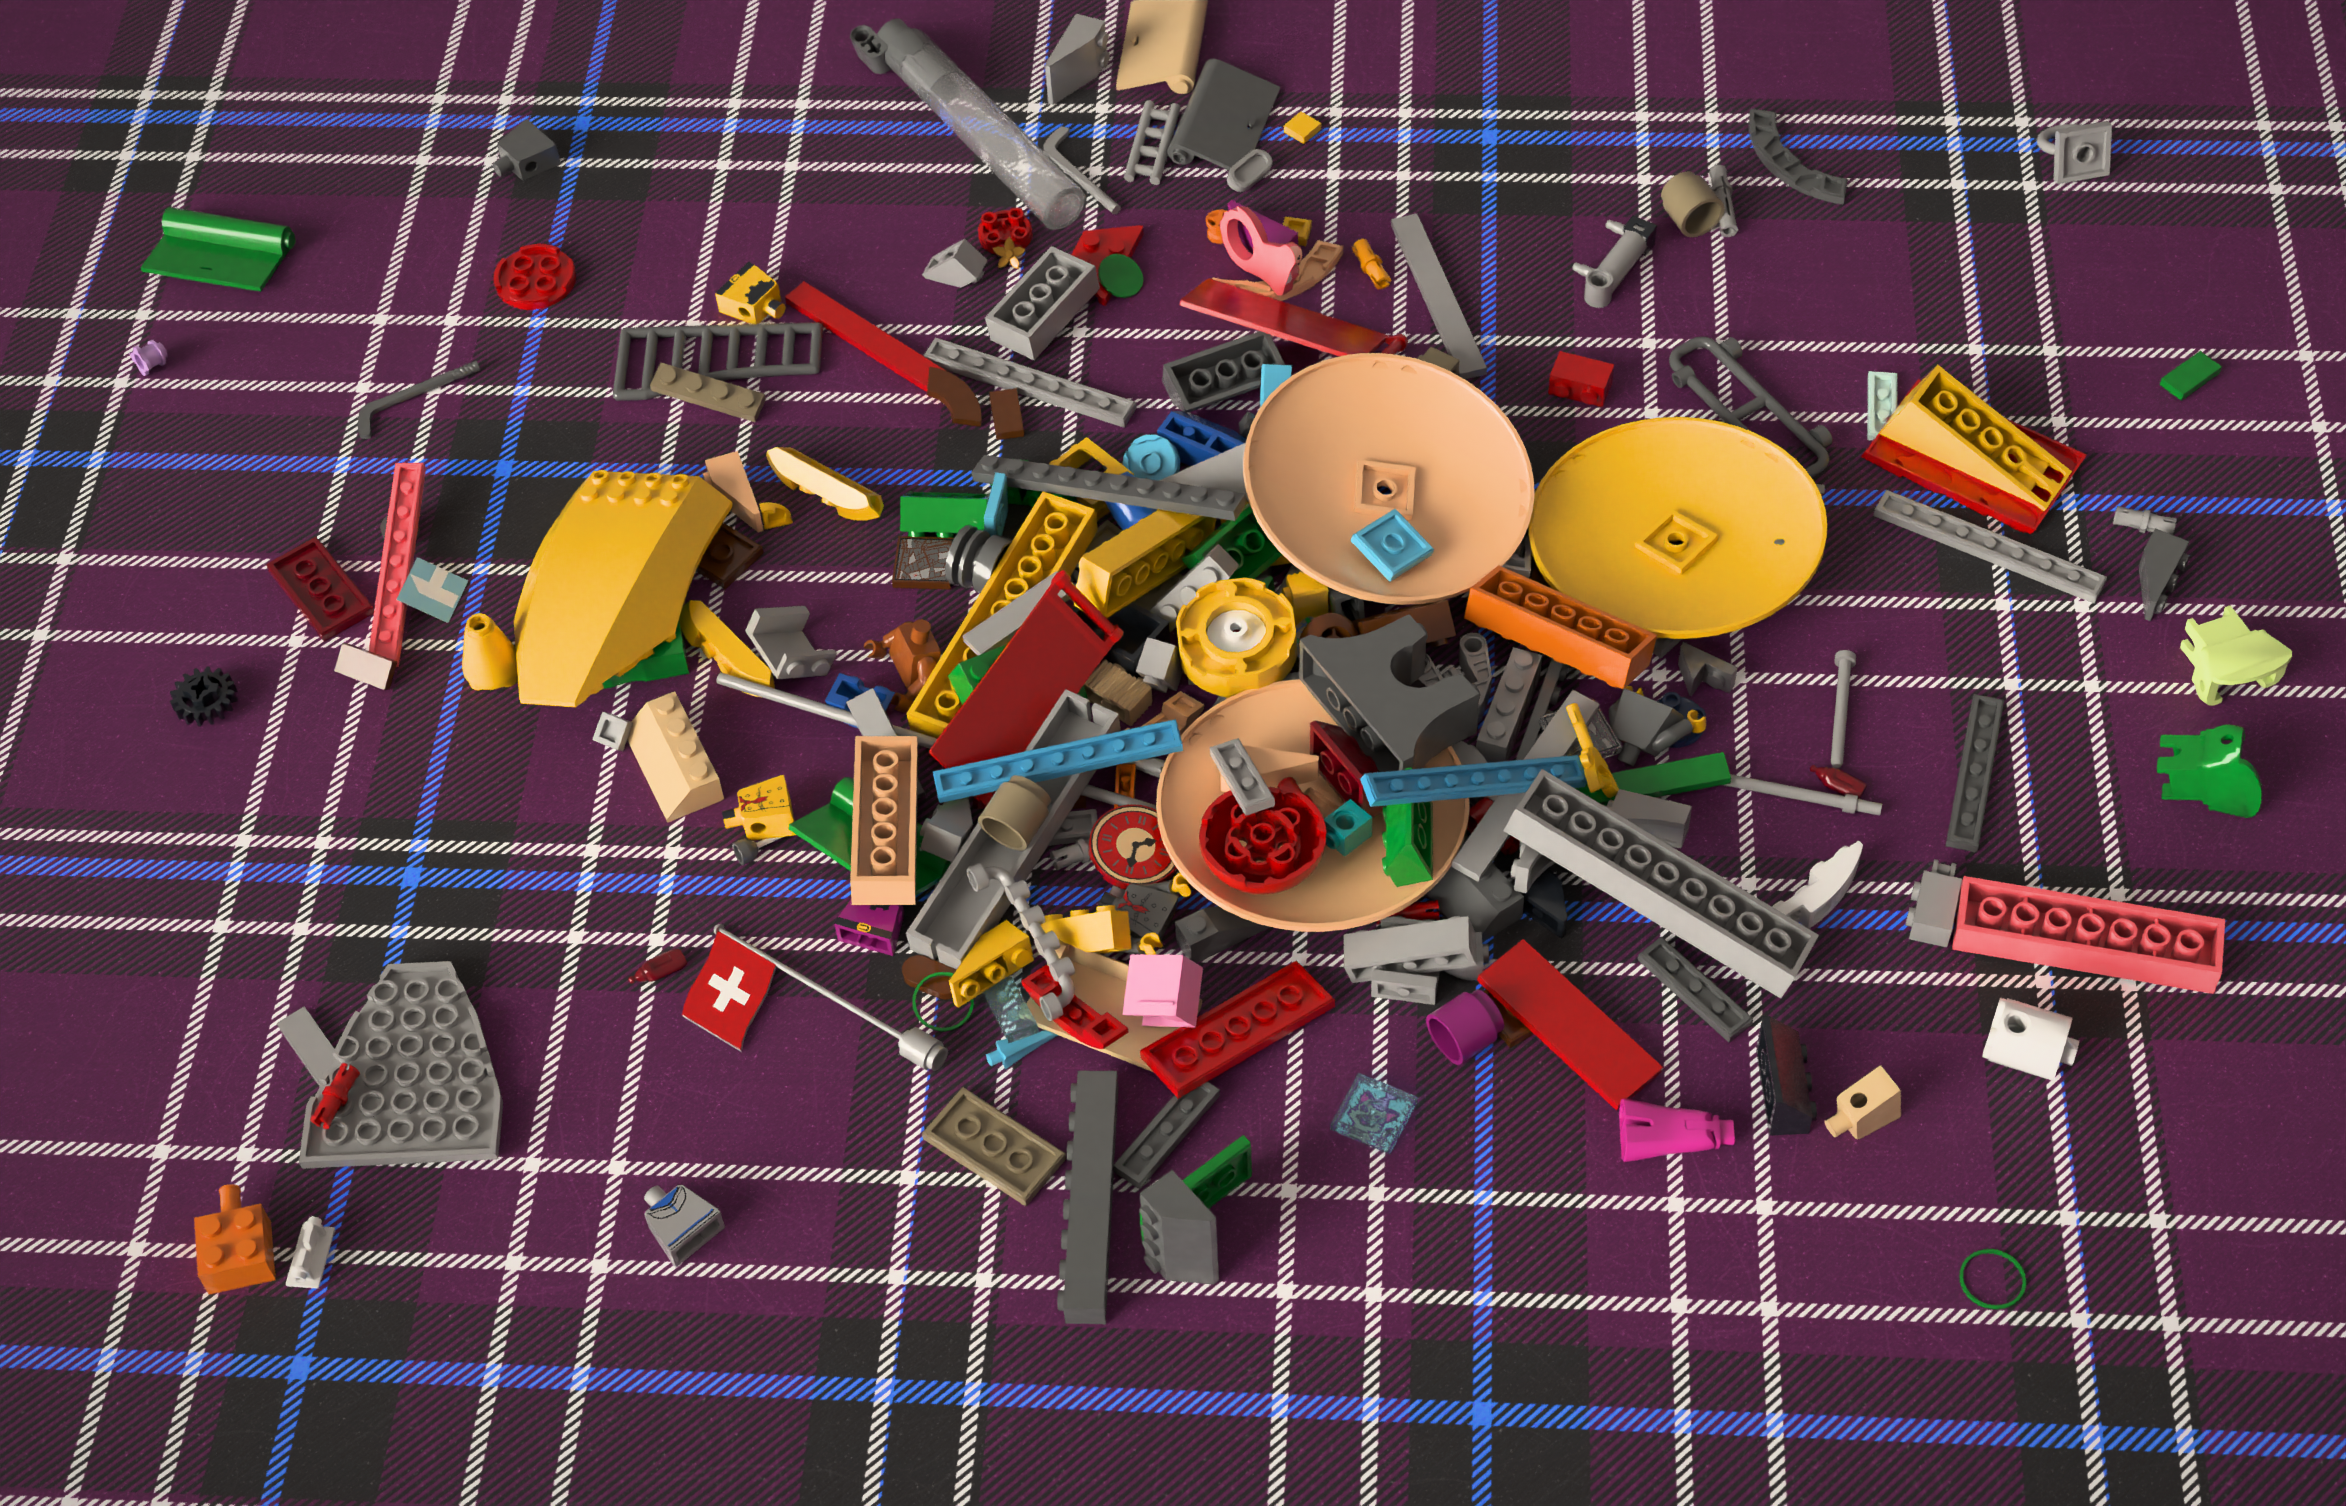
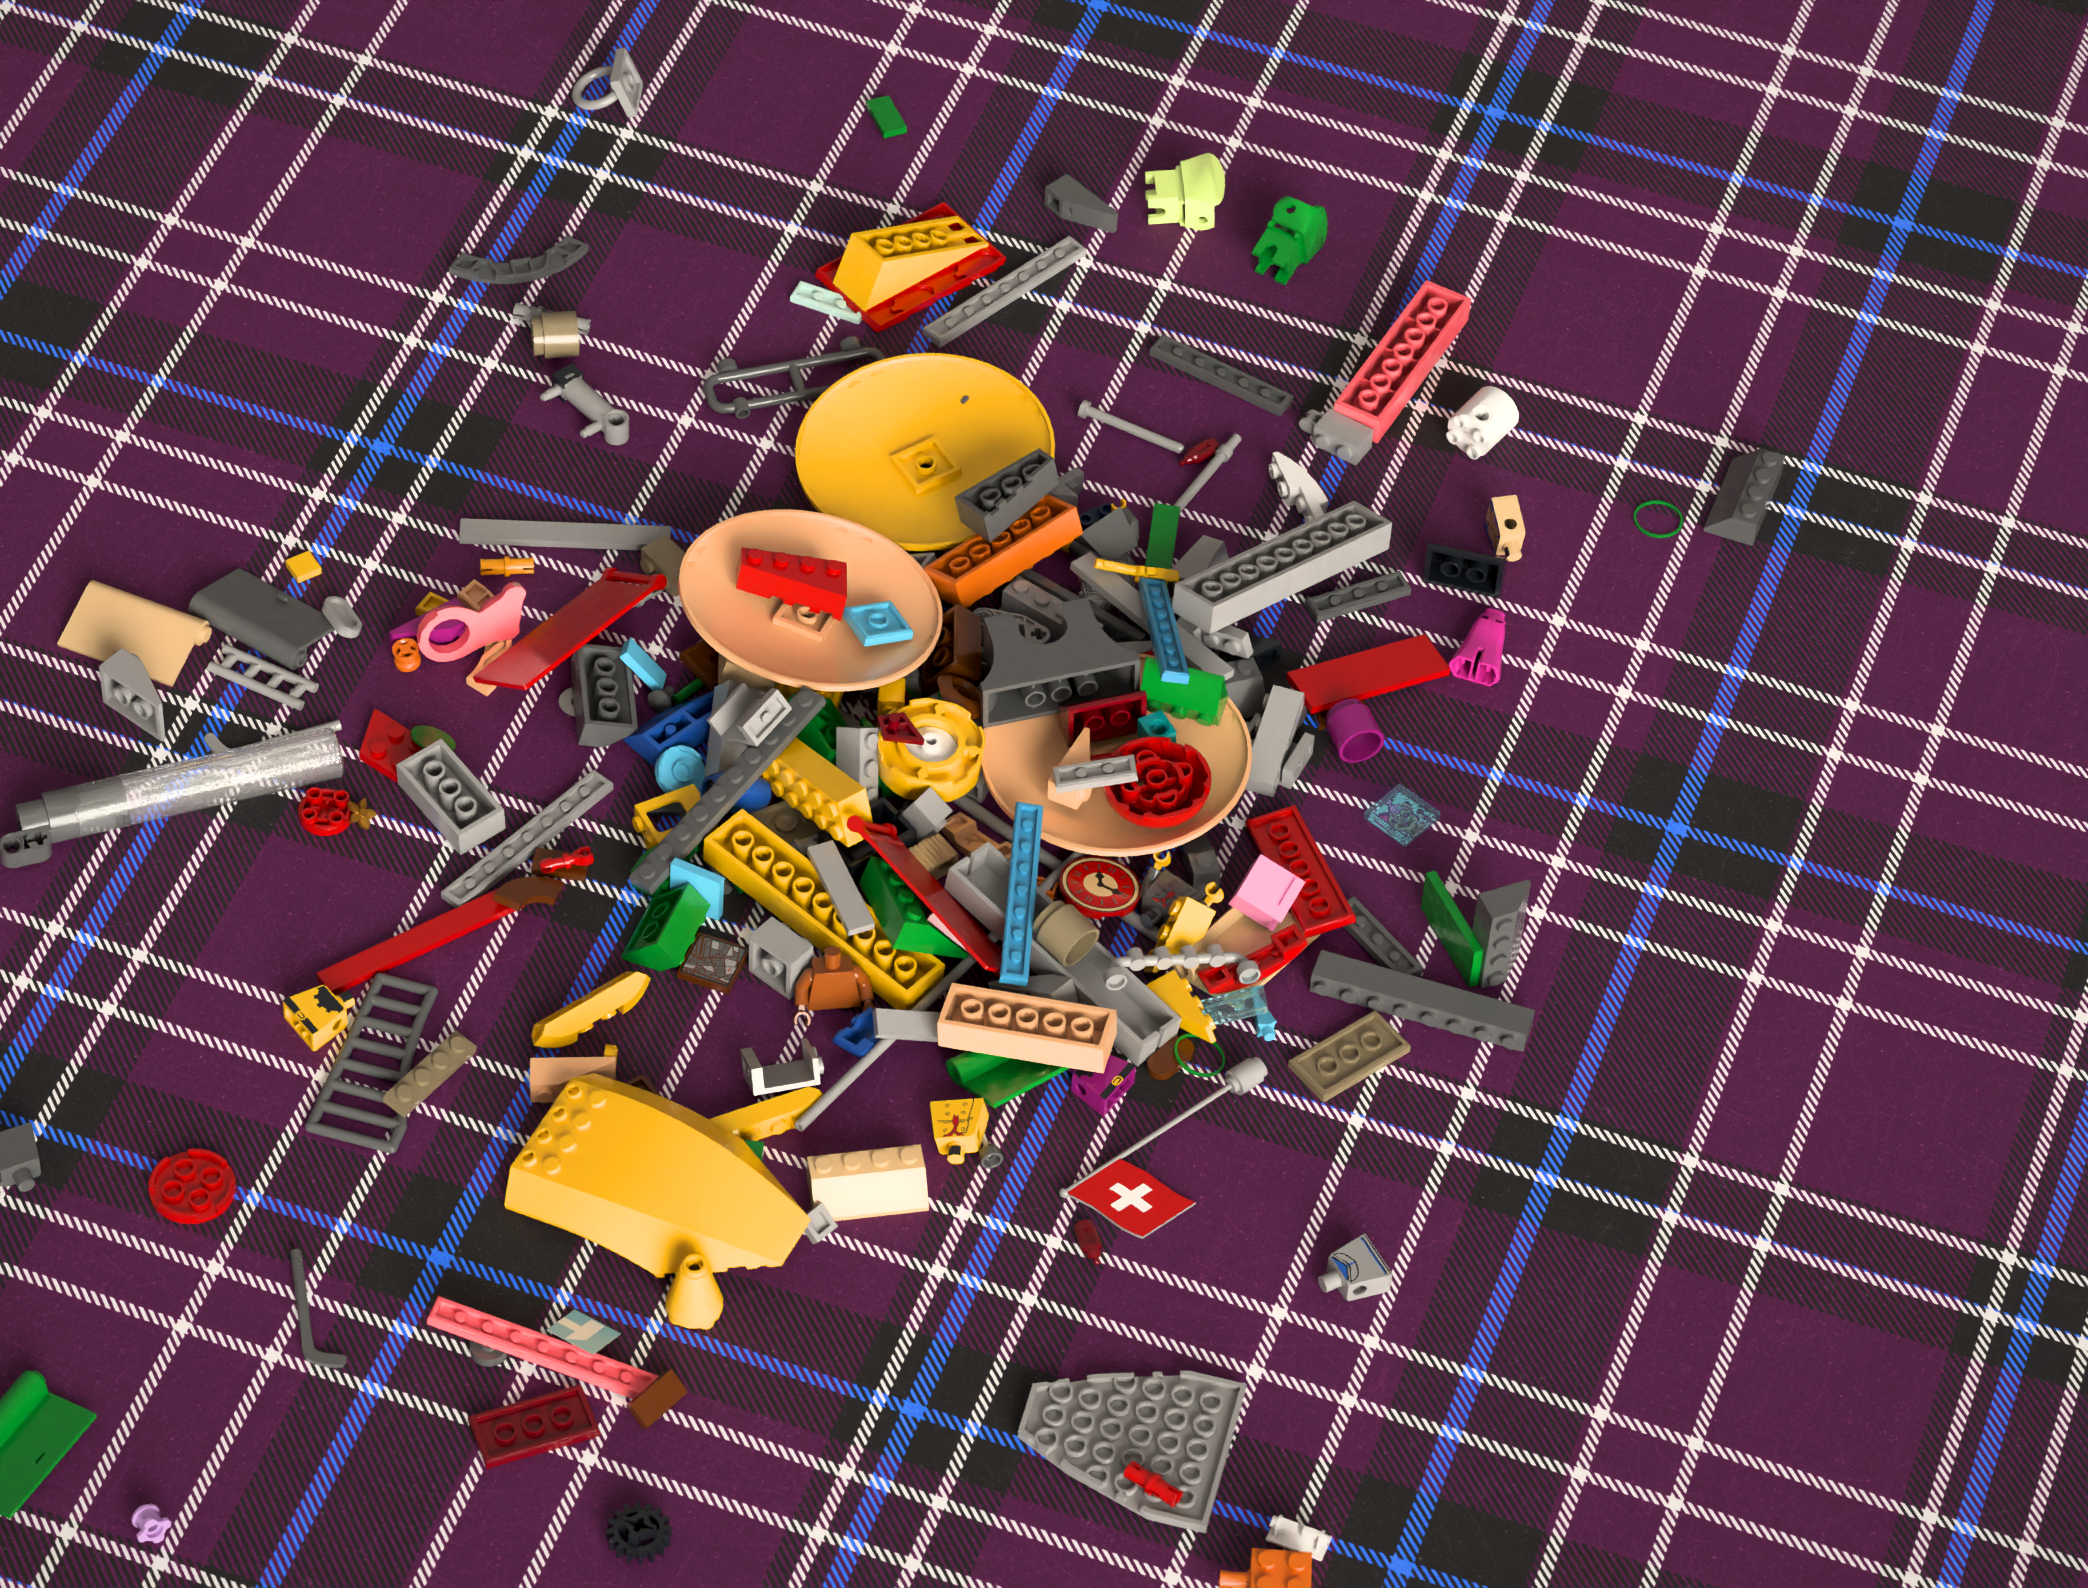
camera: 80 degrees left, 5 degrees down
(308, 1042) = (1076, 1510): light grey tile -> none
(932, 597) = (779, 956): none -> light grey brick
(956, 265) = (358, 854): light grey slope -> none
(974, 557) = (747, 908): dark grey wheel -> none
(1001, 411) = (579, 857): none -> red piece
(1195, 467) = (748, 719): none -> light grey panel
(1231, 591) = (898, 728): none -> dark red piece
(1406, 459) = (794, 579): none -> wedge
(1581, 379) = (716, 470): red brick -> none
(1620, 596) = (1007, 495): none -> dark grey wedge
(2076, 1369) = (1745, 496): none -> dark grey slope
(2143, 520) = (1022, 195): light grey pin -> none

